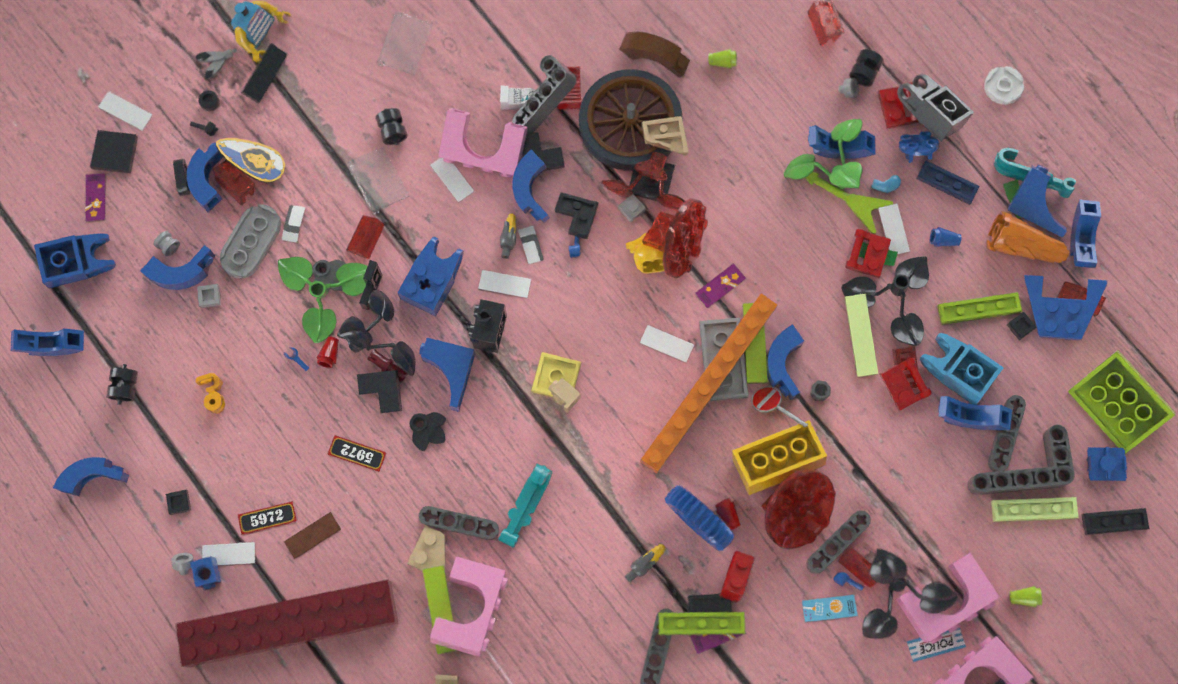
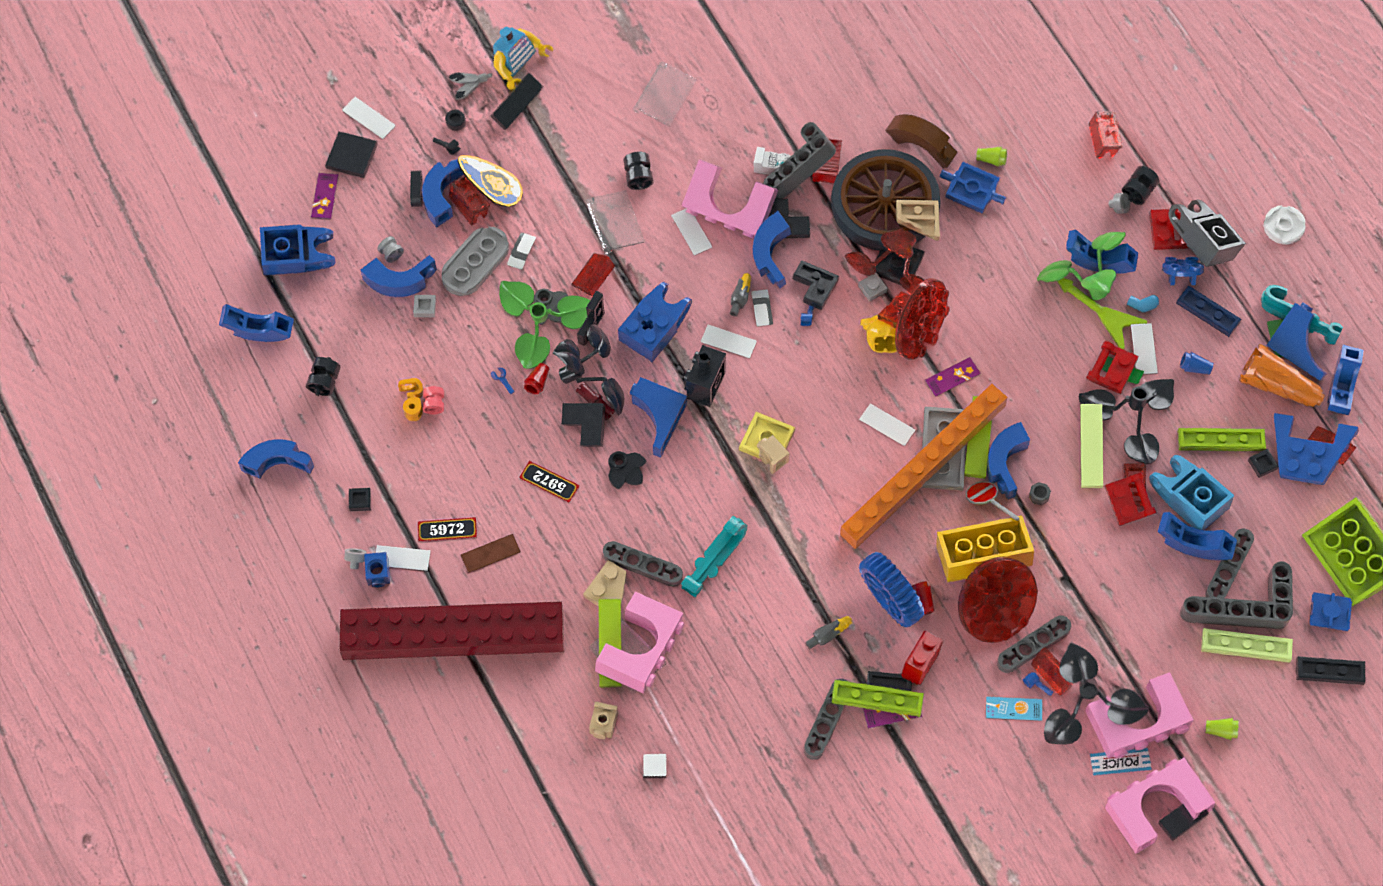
camera: 10 degrees right, 10 degrees down
(232, 391) = (433, 400): none -> coral wheel
(709, 93) = (972, 187): none -> blue plate

